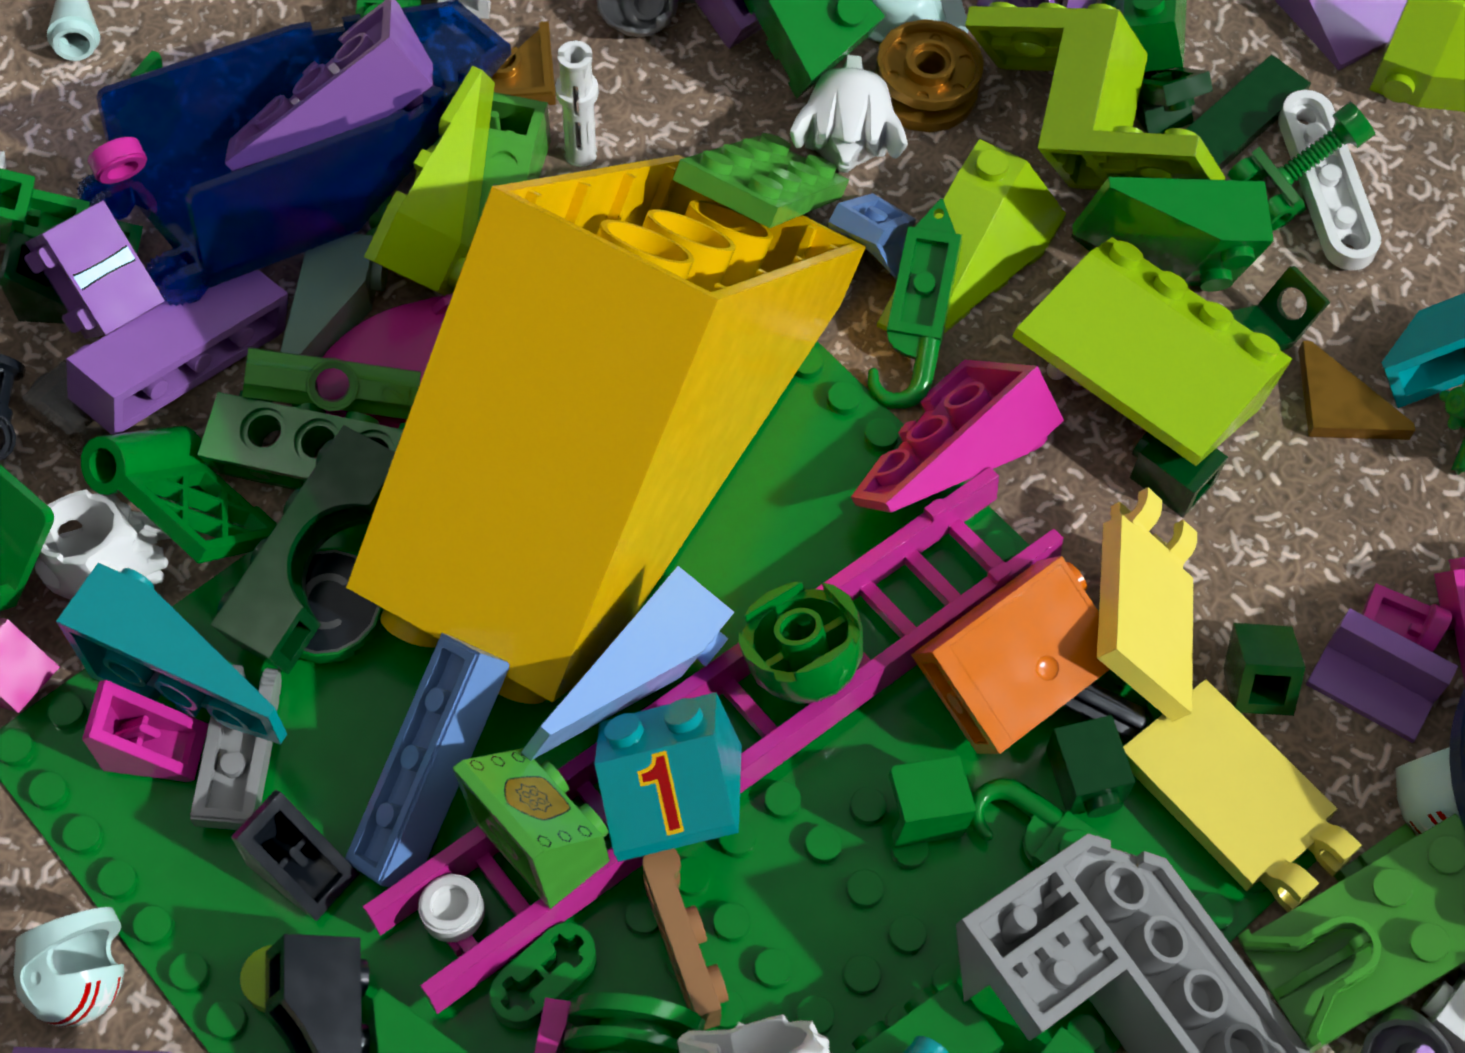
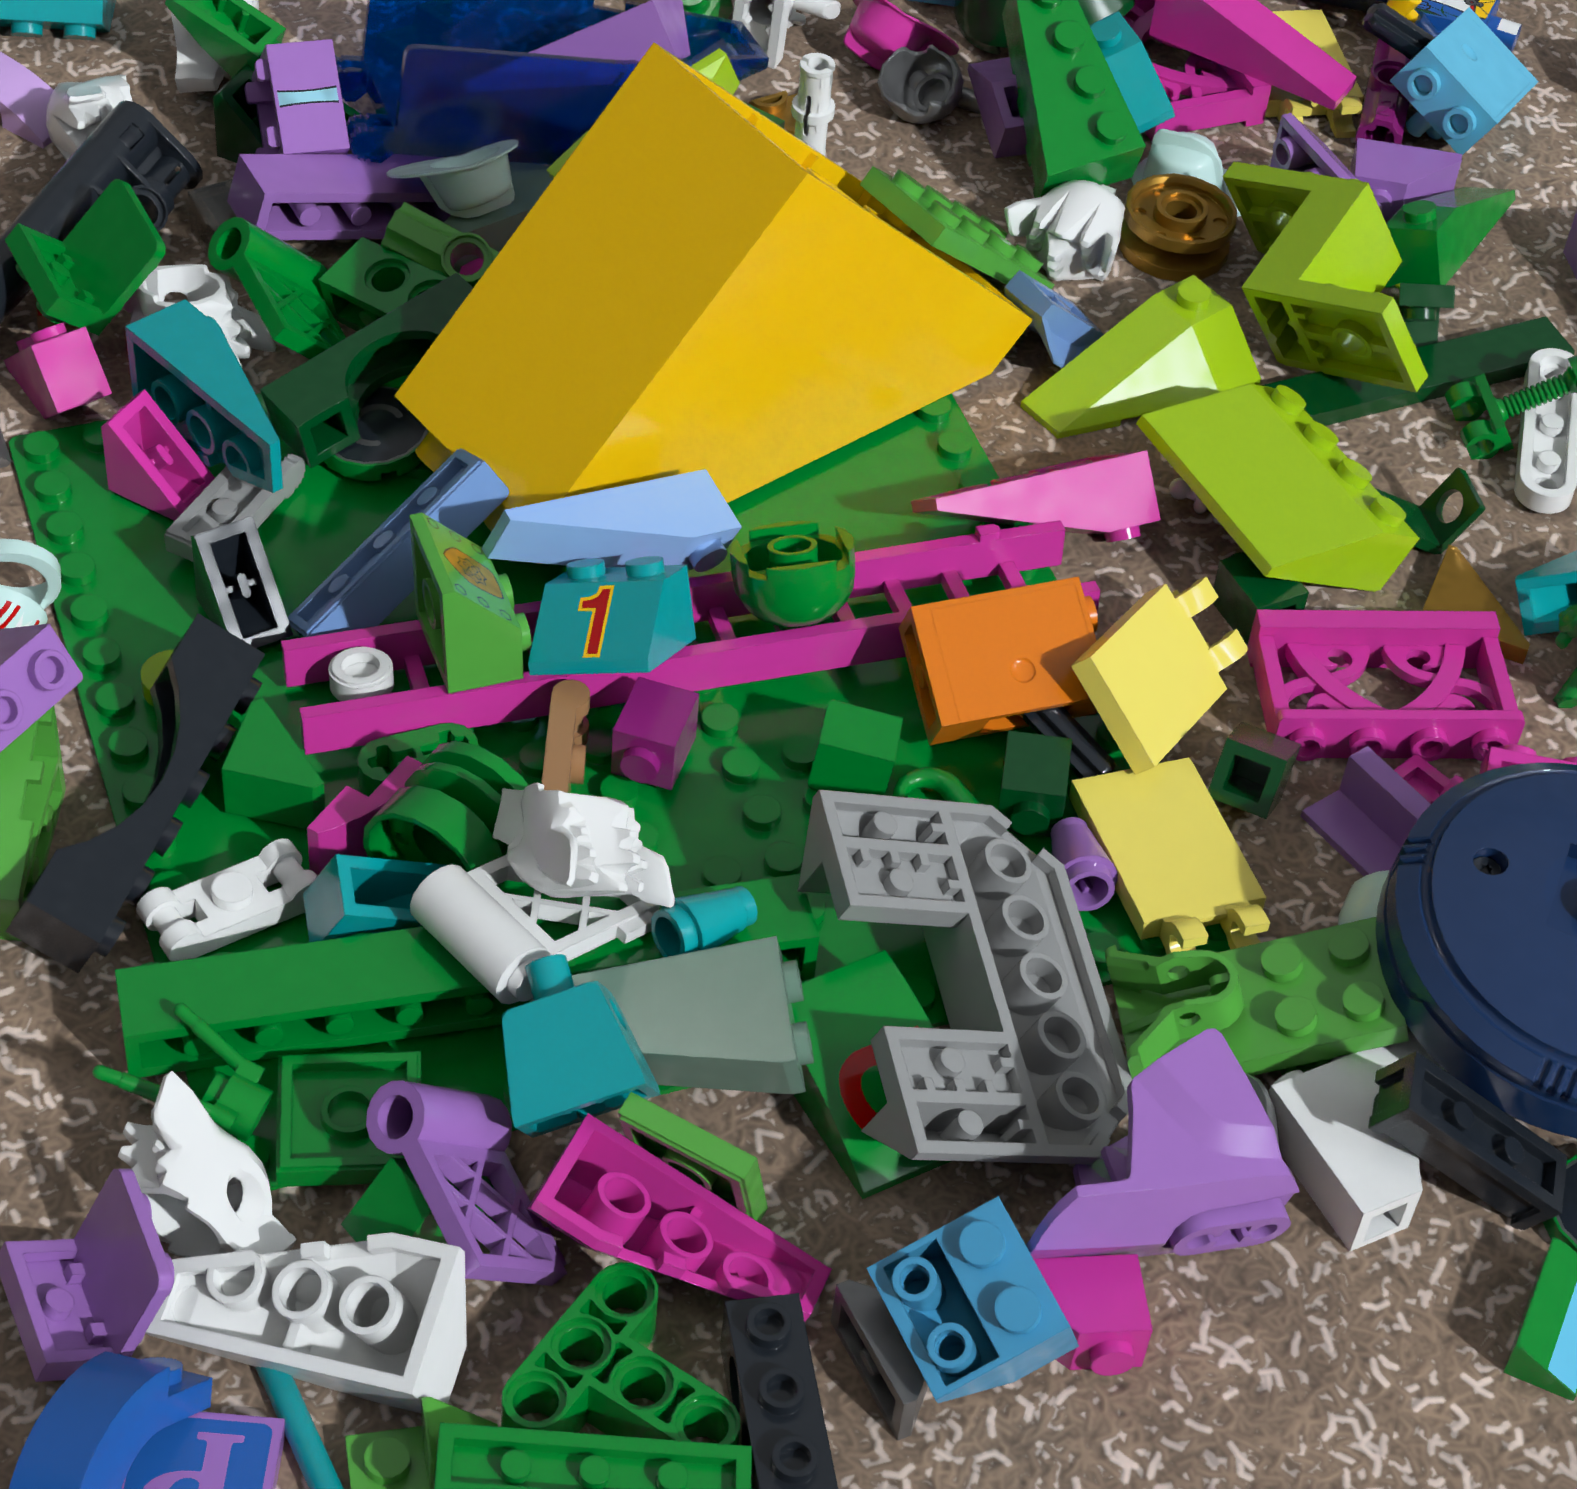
camera: 20 degrees right, 15 degrees down
(117, 160) = (365, 42): dark pink tile -> none
(285, 291) = (467, 182): none -> light aqua piece
(748, 864) = (654, 733): none -> magenta brick
(921, 304) = (1067, 387): green plate -> none
(1165, 832) = (1086, 863): none -> medium lavender cone
(1183, 226) = (1363, 391): green slope -> none
(1345, 456) = (1343, 722): none -> dark pink fence

